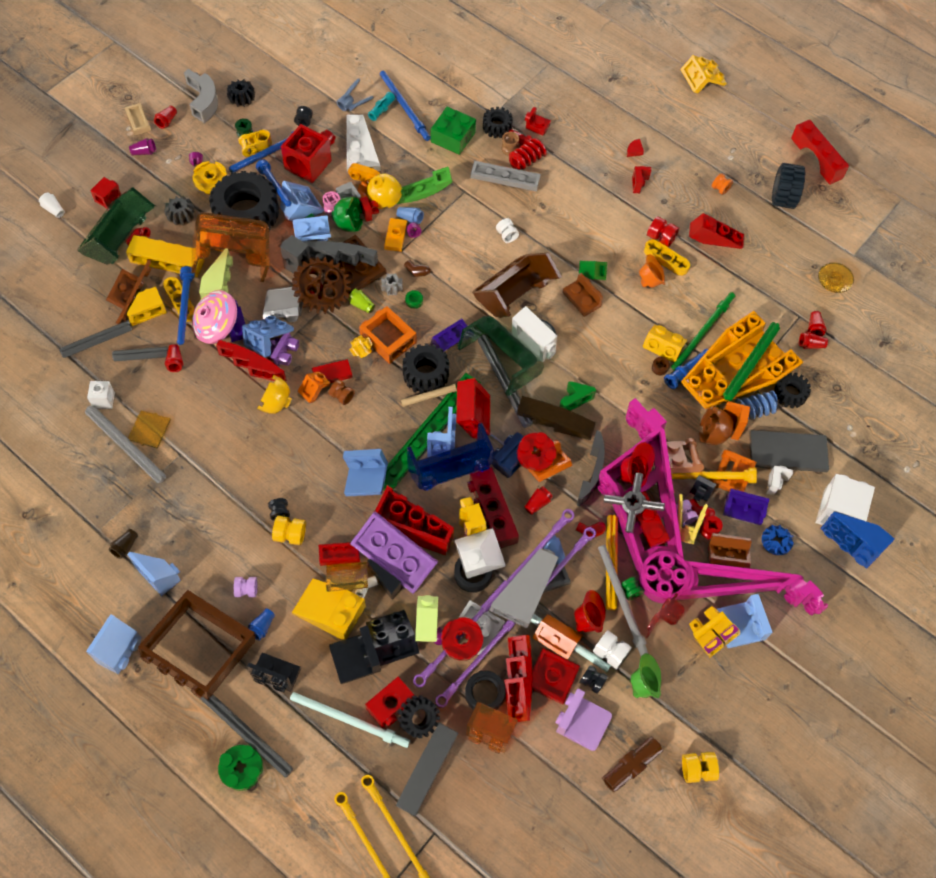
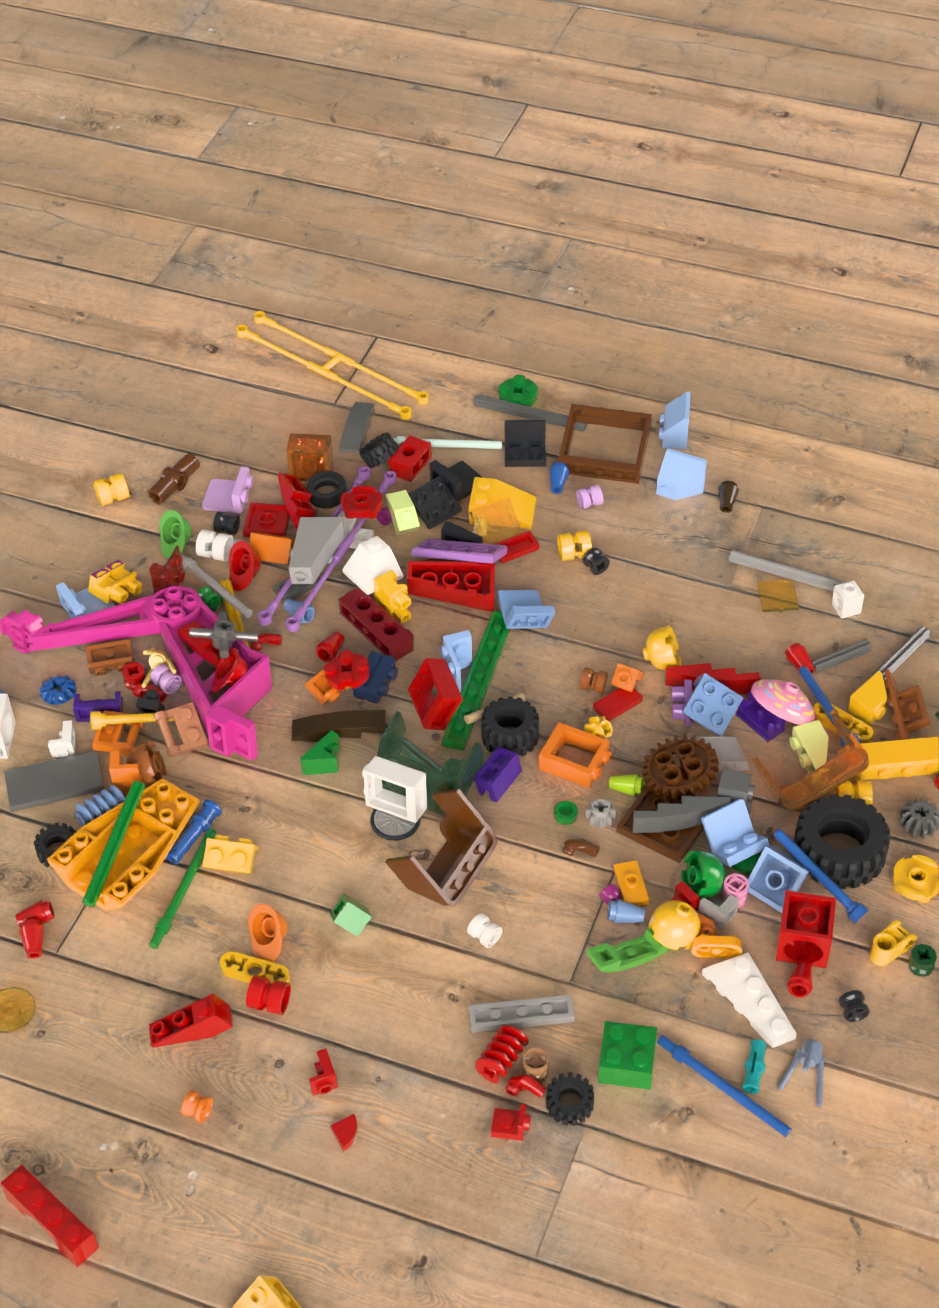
camera: 165 degrees right, 15 degrees down
(257, 156) = (844, 972): blue piece -> none
(452, 463) = (460, 613): clear blue windscreen -> none
(583, 295) = (353, 881): dark orange bracket -> none
(598, 451) = (279, 672): dark grey slope -> none
(660, 360) = (234, 831): reddish brown bush -> none
(788, 185) = (94, 1113): black wheel -> none

